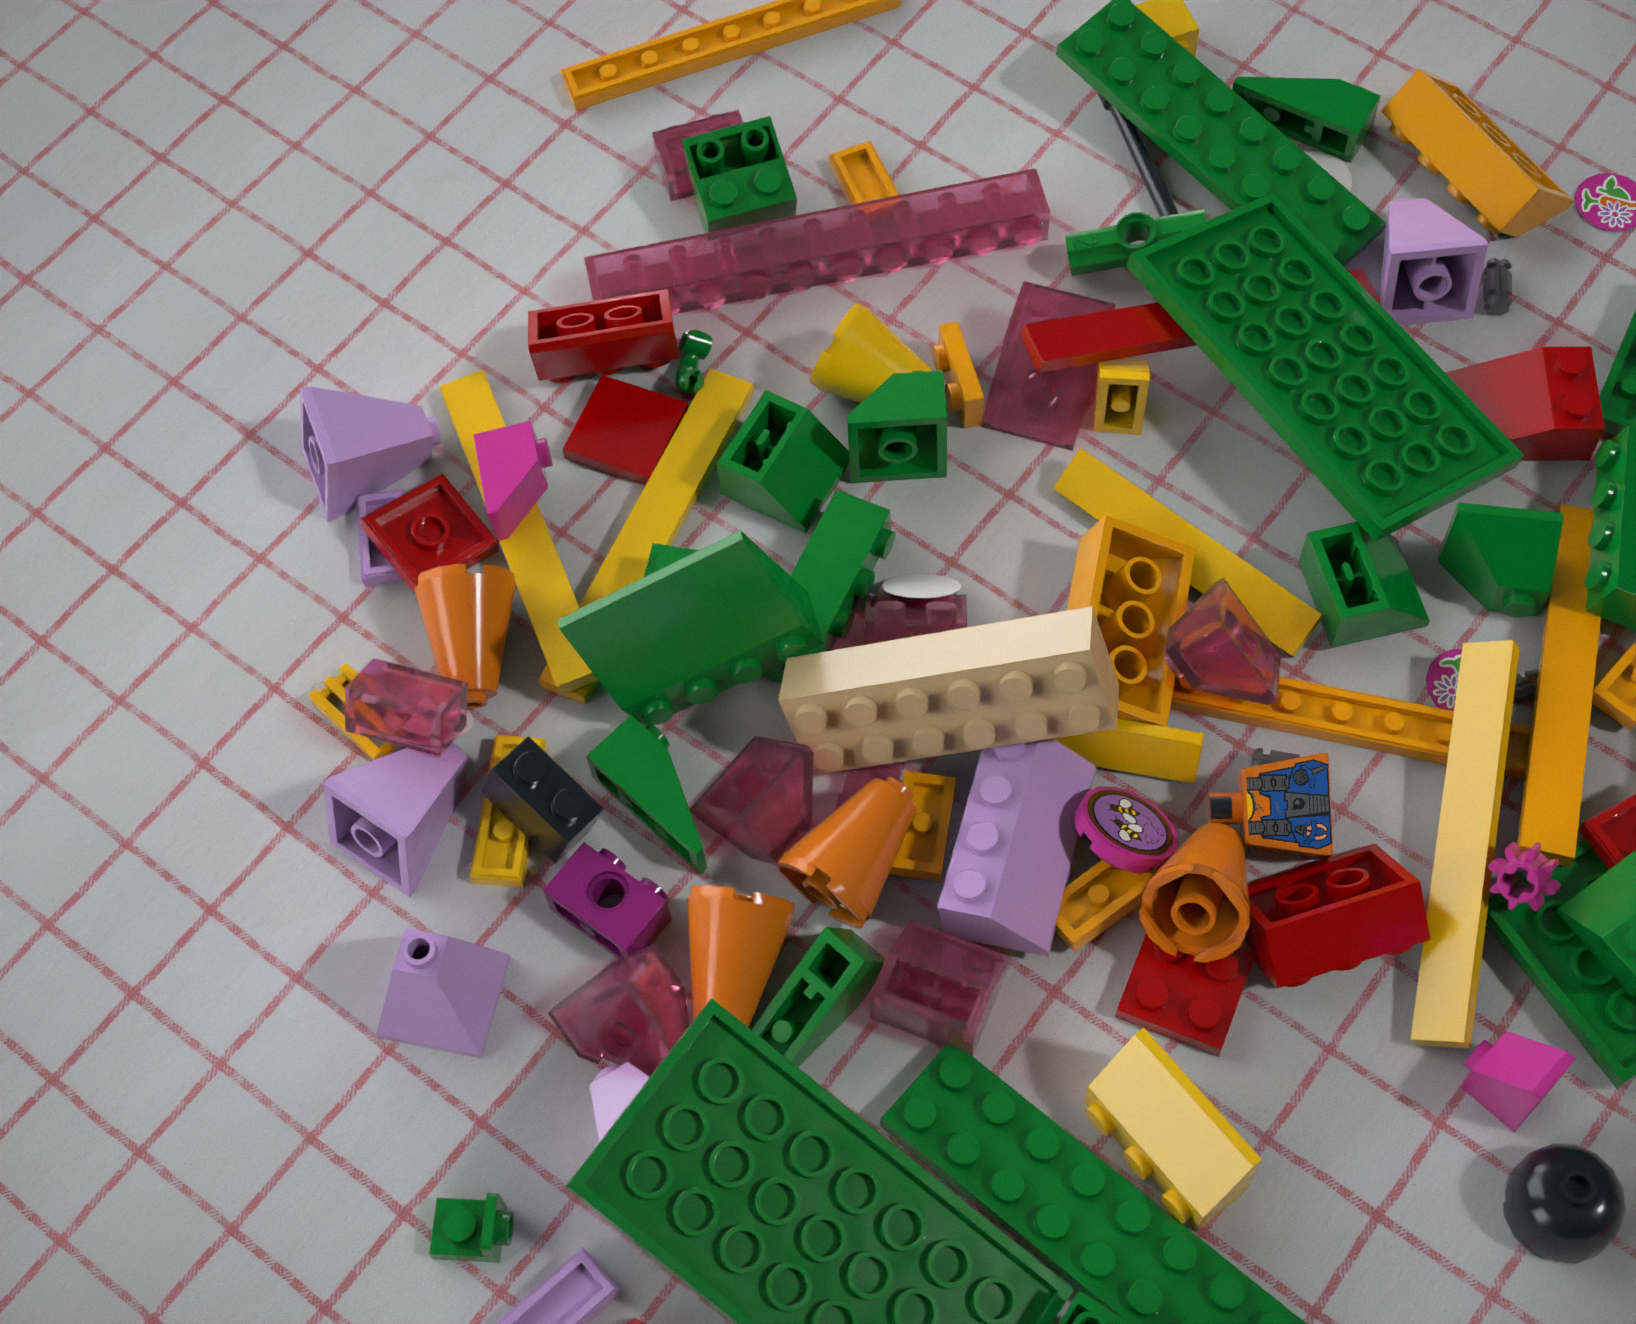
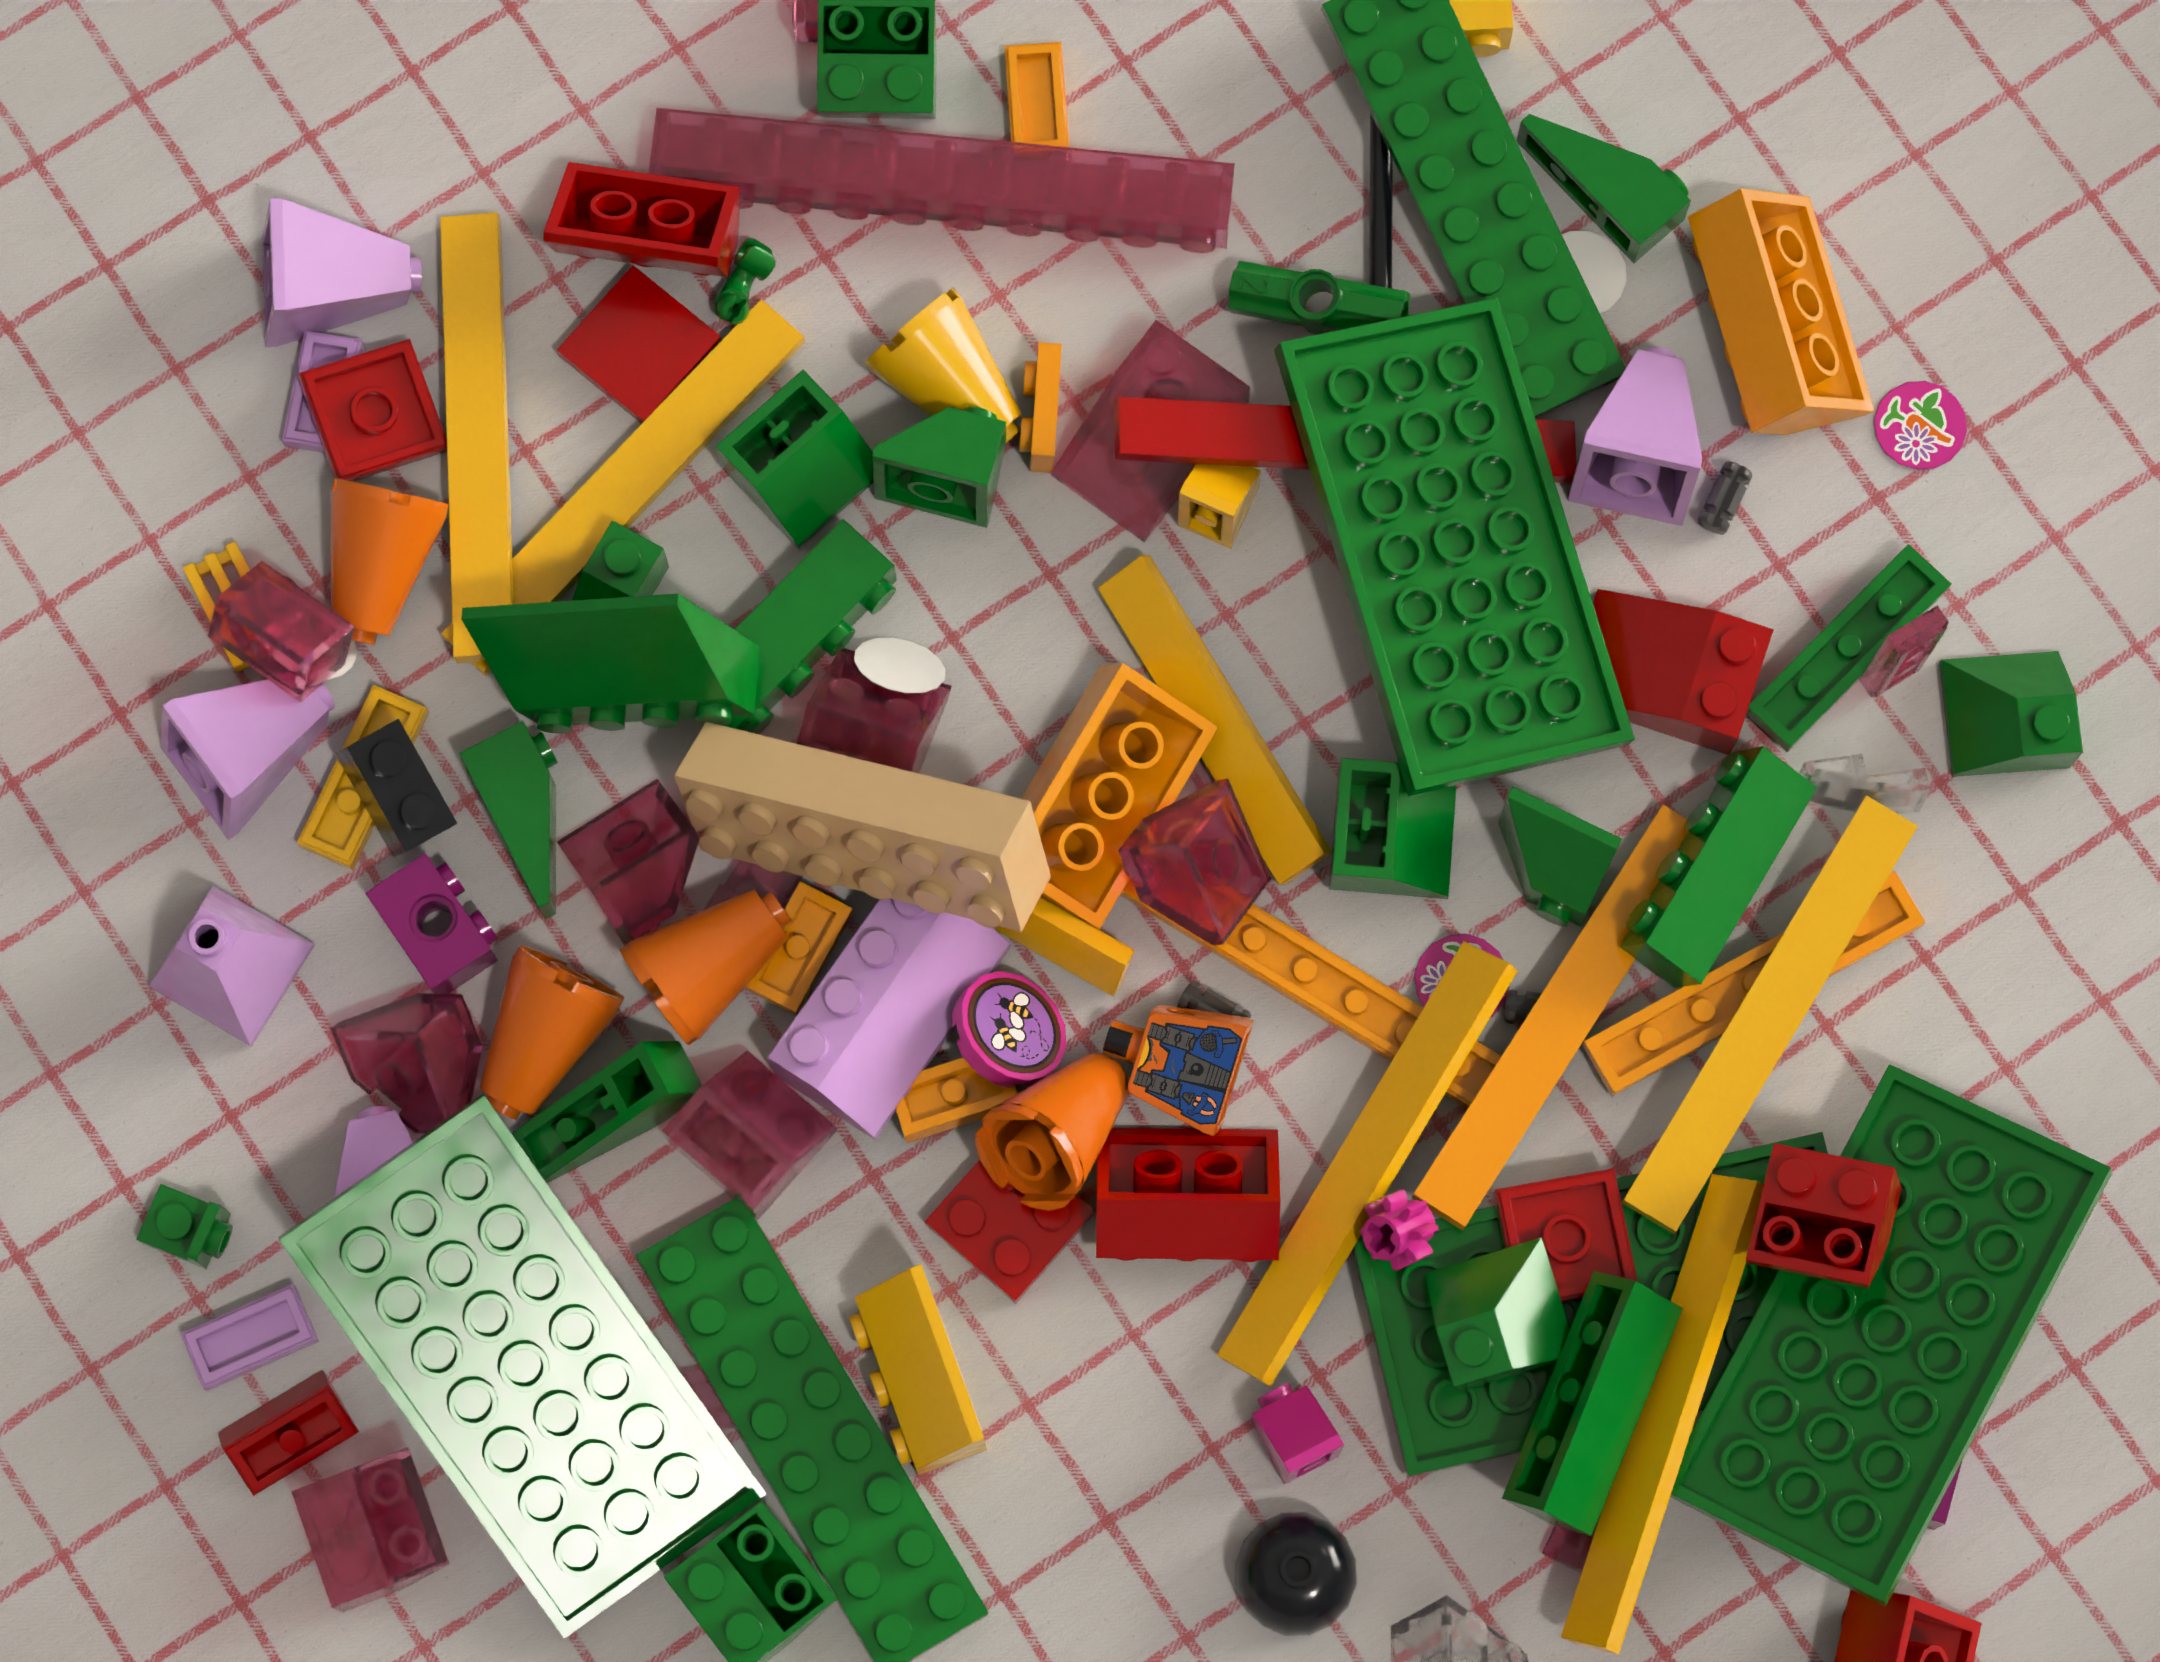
camera: 15 degrees right, 15 degrees up
(511, 473) = (482, 377): dark pink slope -> none

